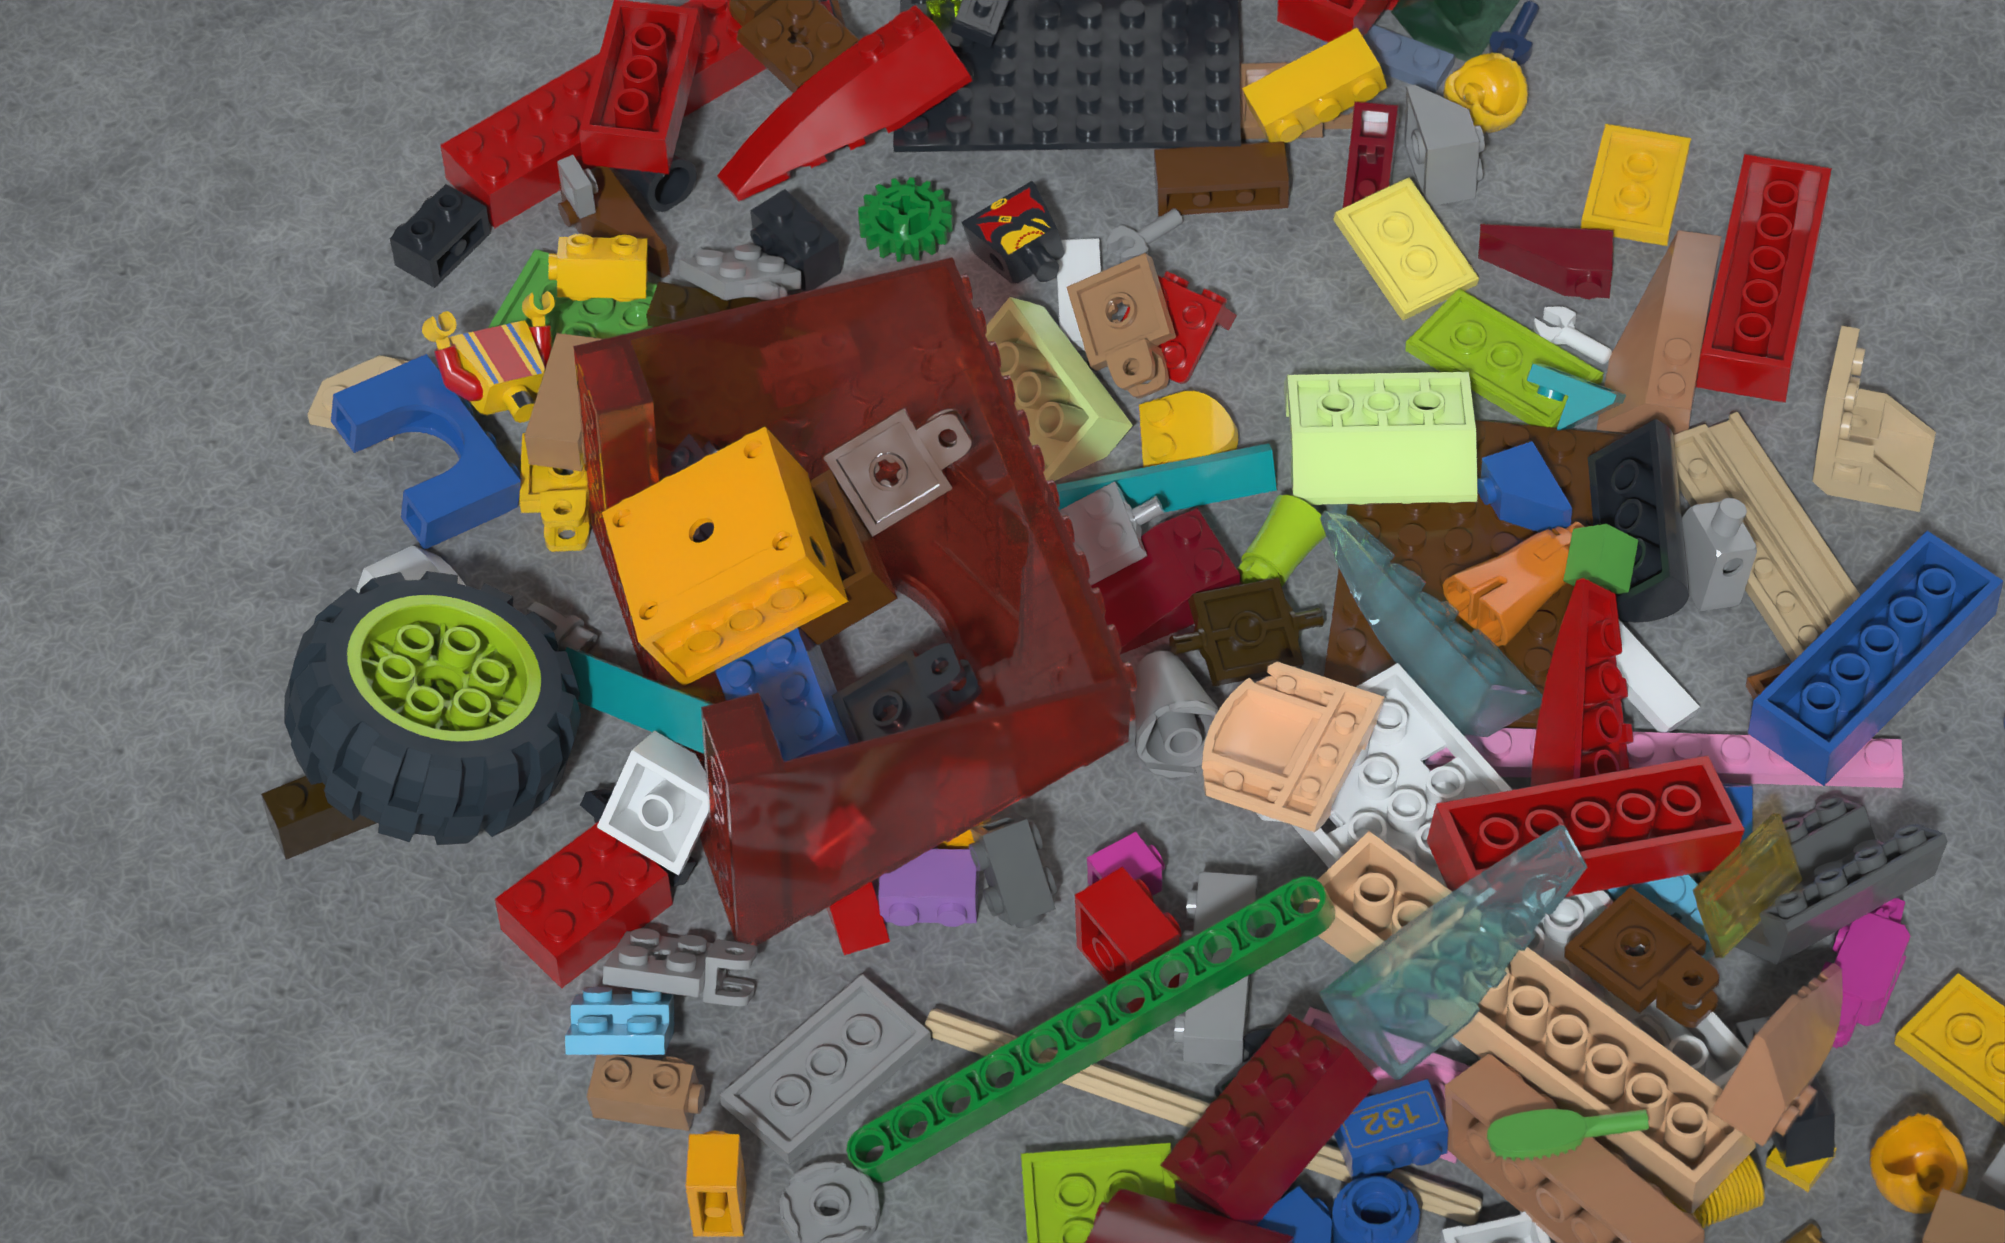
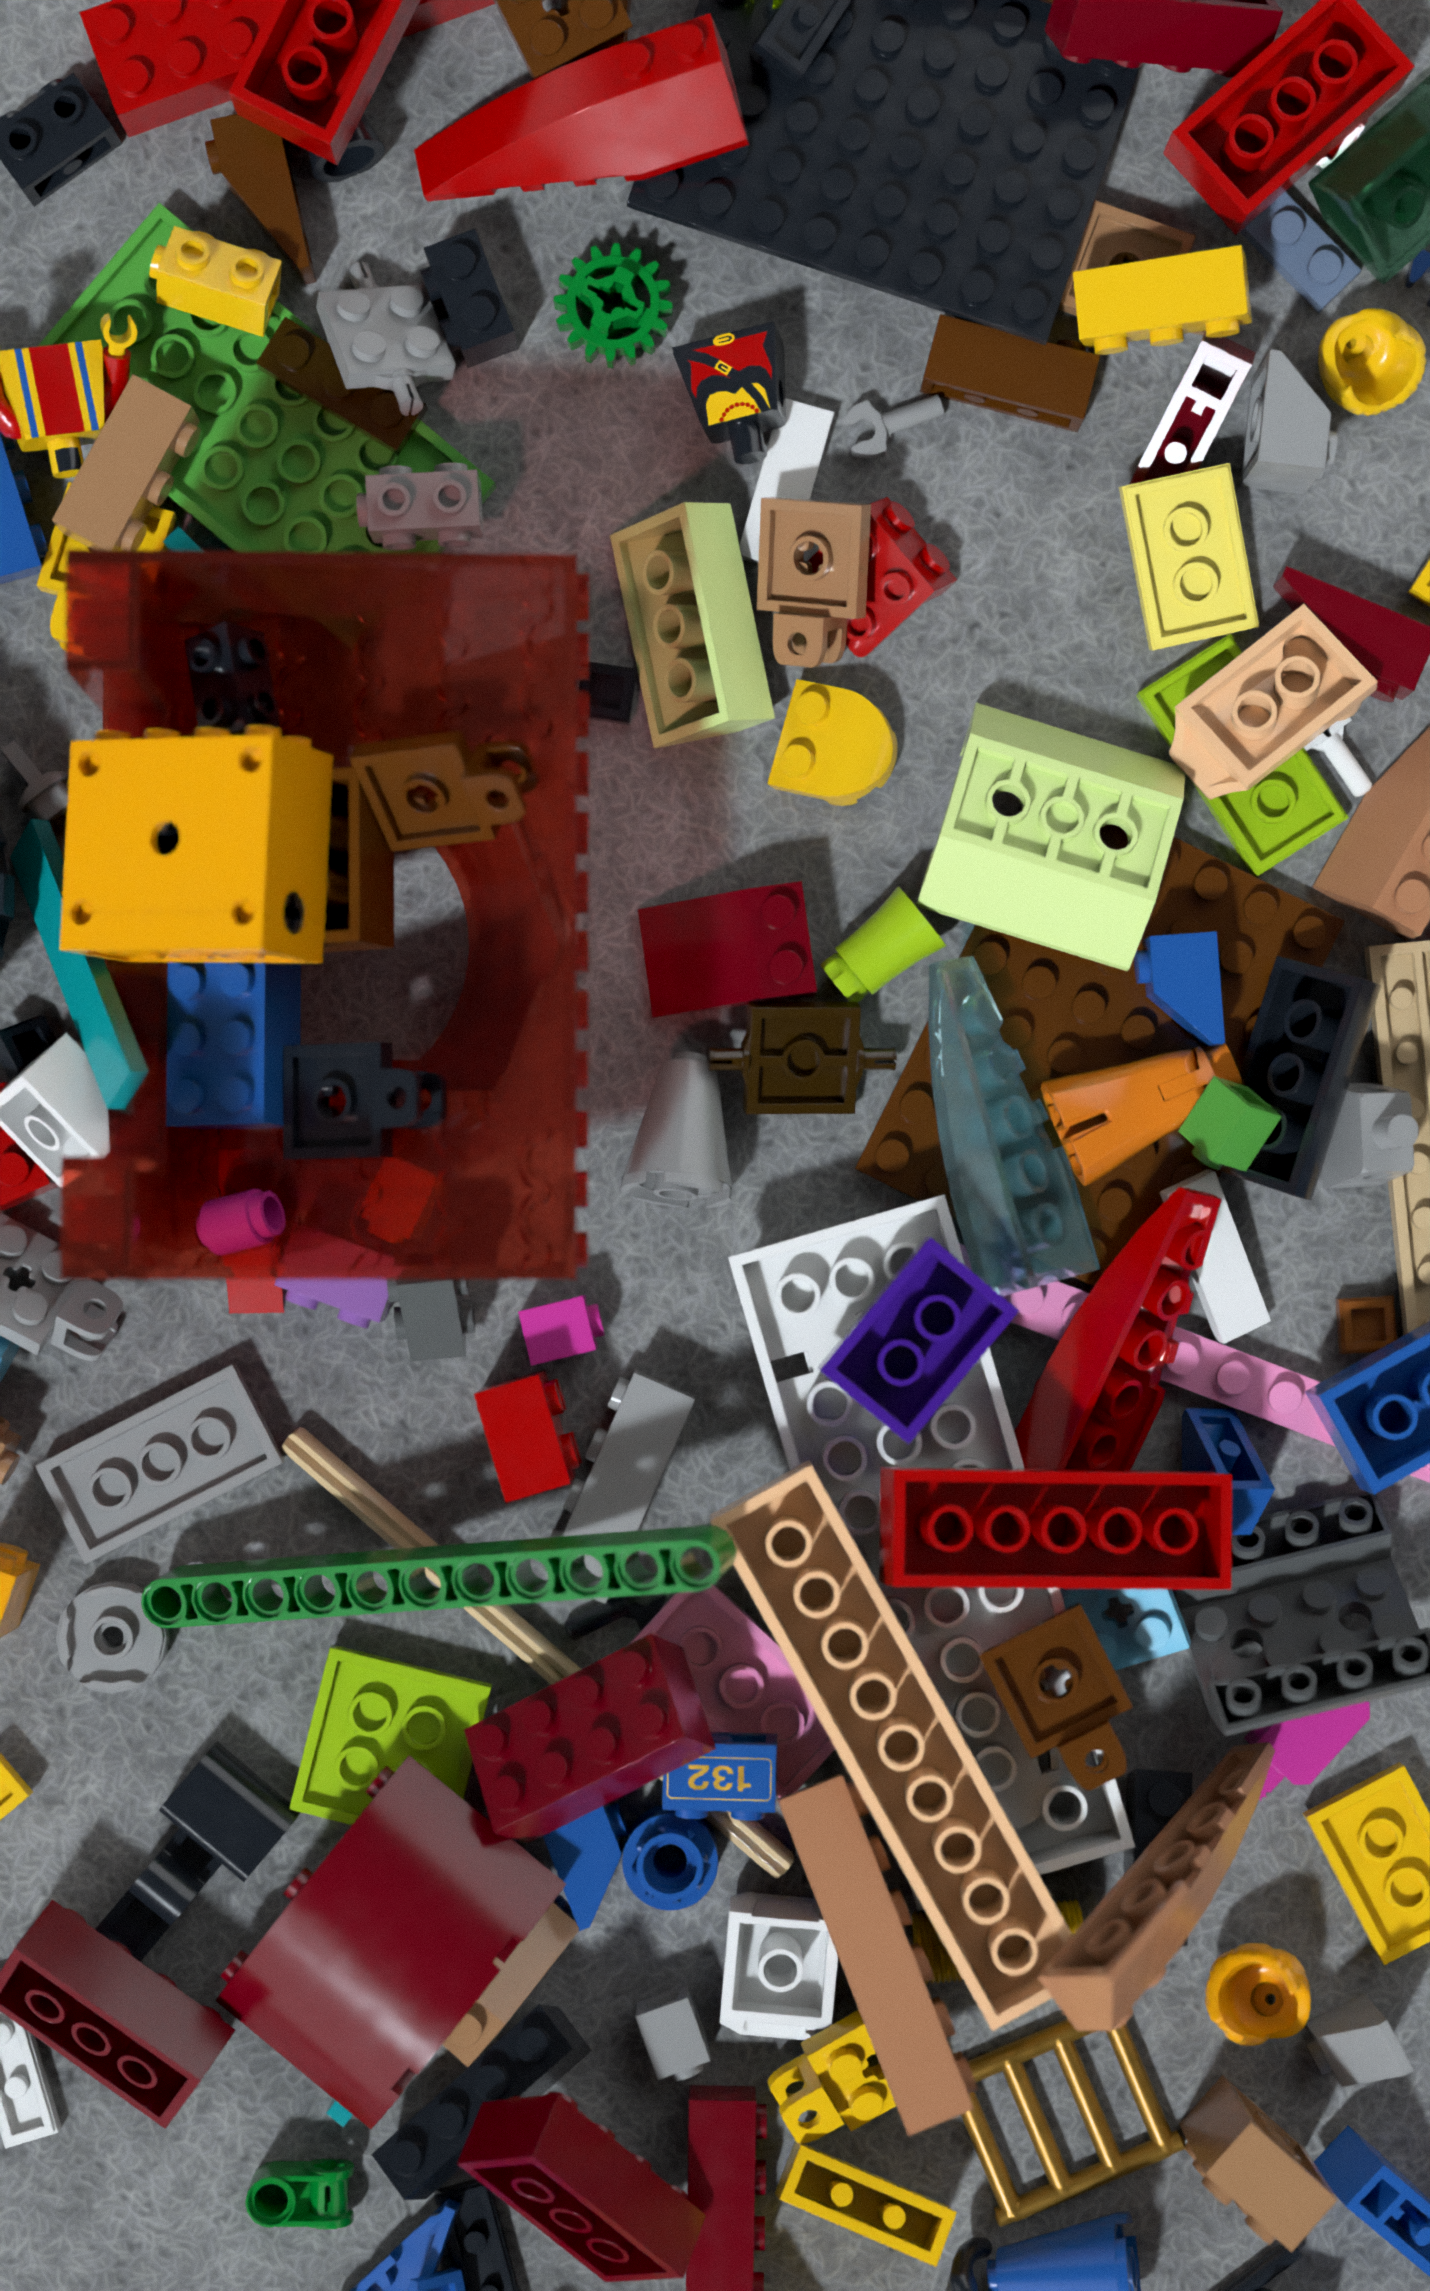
camera: 15 degrees right, 35 degrees up
(577, 186) = (223, 146): light grey plate -> none
(1110, 529) = (670, 872): light grey plate -> none
(1186, 481) = (752, 812): teal tile -> none
(1287, 744) = (770, 1289): light nougat slope -> none
(1416, 740) = (918, 1339): none -> dark purple brick
(1441, 964) = (806, 1690): clear light blue wedge -> none
(1506, 309) = (1267, 705): none -> light nougat slope
(1556, 1131) = (866, 1928): bright green piece -> none
(1584, 397) = (1310, 865): teal slope -> none
(1746, 885) = (1214, 1620): clear yellow piece -> none

